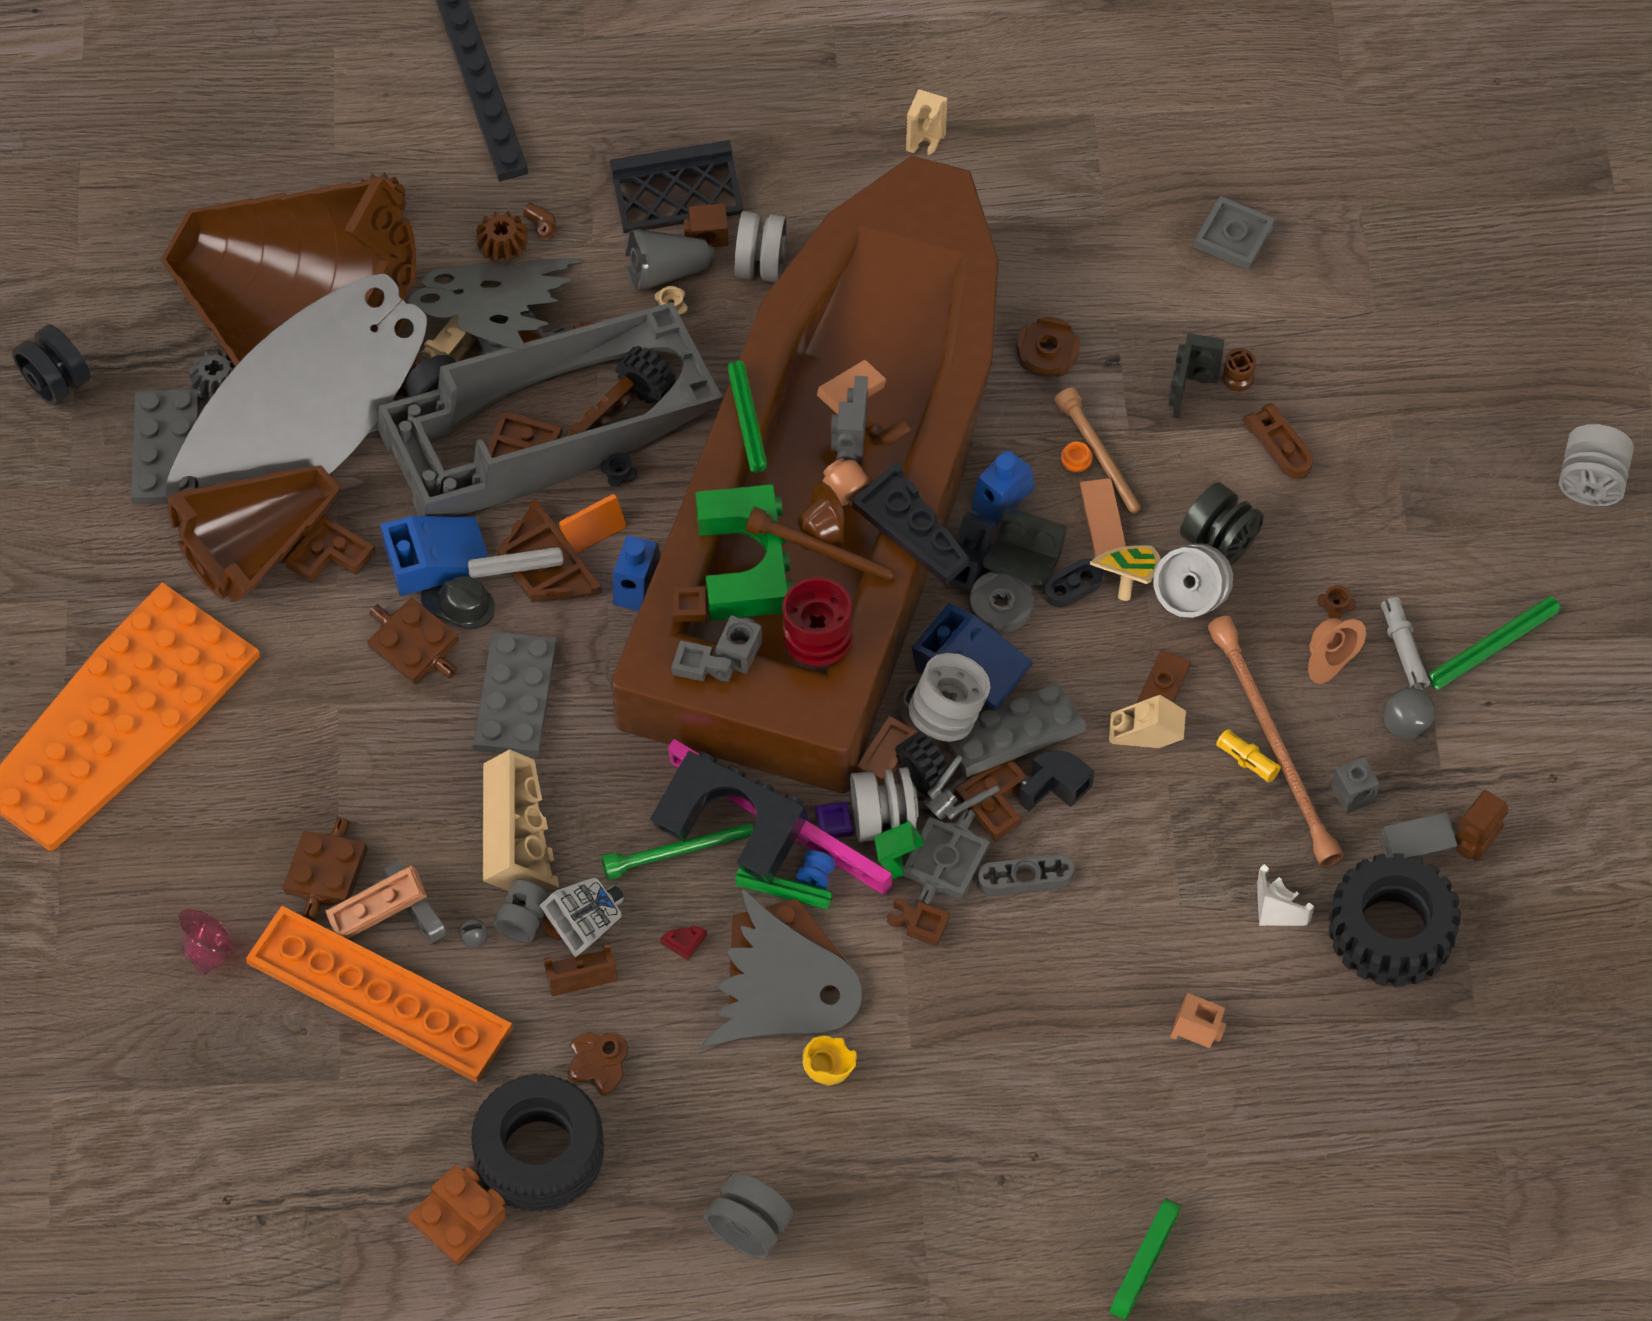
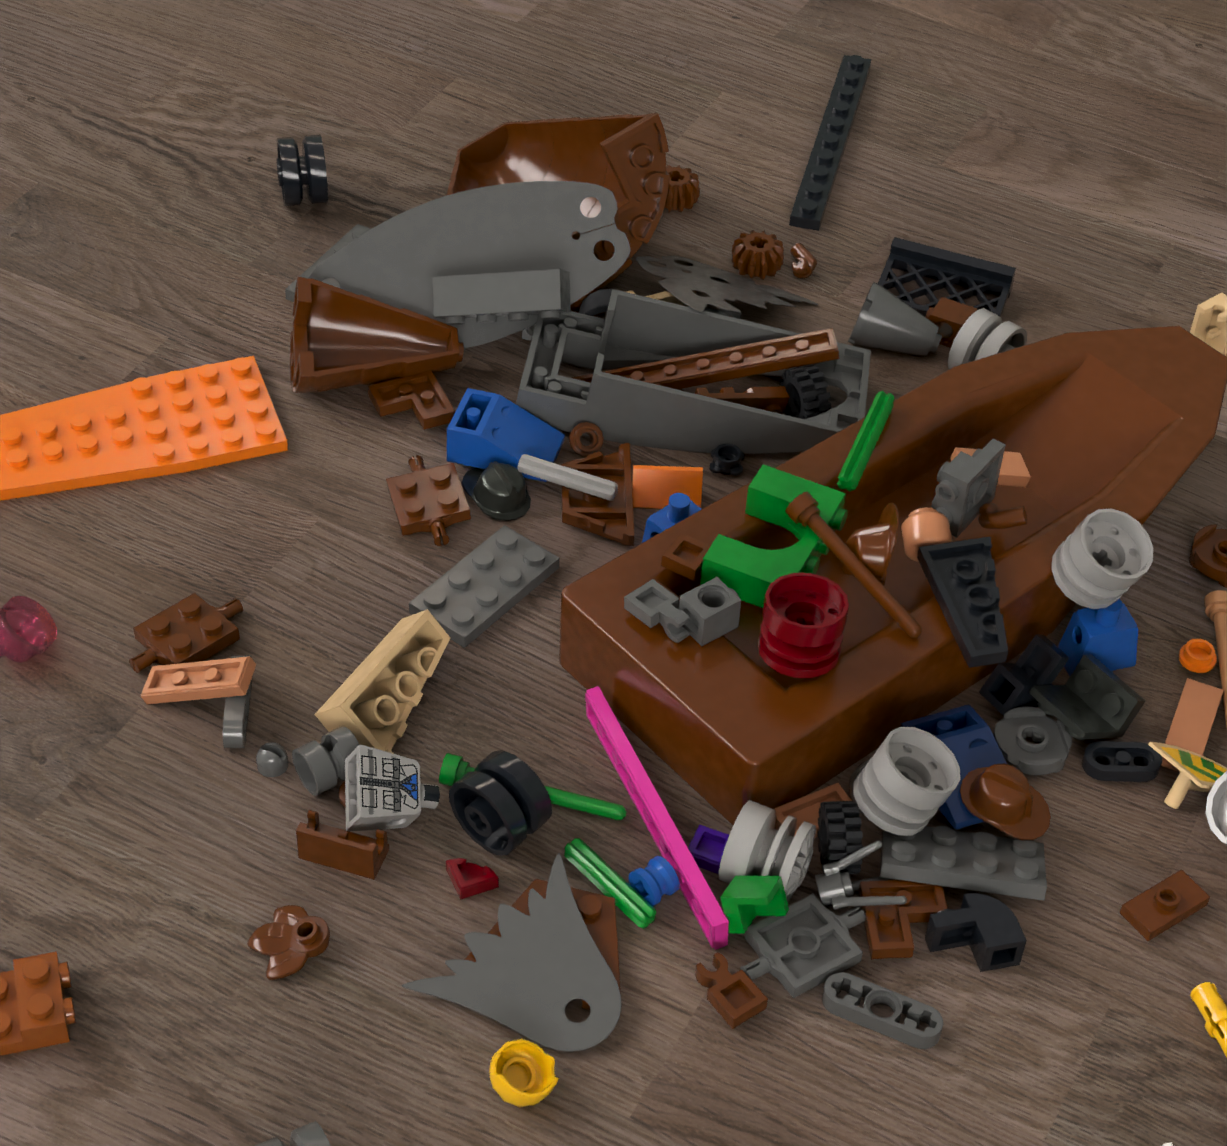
camera: 30 degrees right, 15 degrees down
(348, 420) = (501, 294): none -> dark grey brick
(379, 994) = (137, 767): orange plate -> none
(504, 512) = (595, 435): none -> reddish brown plate
(529, 1101) = (161, 1024): black tyre -> none
(557, 387) = (734, 361): none -> reddish brown tile
(672, 294) = (879, 362): tan plate -> none
(674, 874) = (500, 802): none -> black wheel
(702, 781) = (593, 732): black arch -> none
(987, 436) = (1102, 558): none -> light grey wheel
(1019, 669) = (1006, 801): none -> reddish brown piece
(1148, 724) = (1122, 930): tan slope -> none

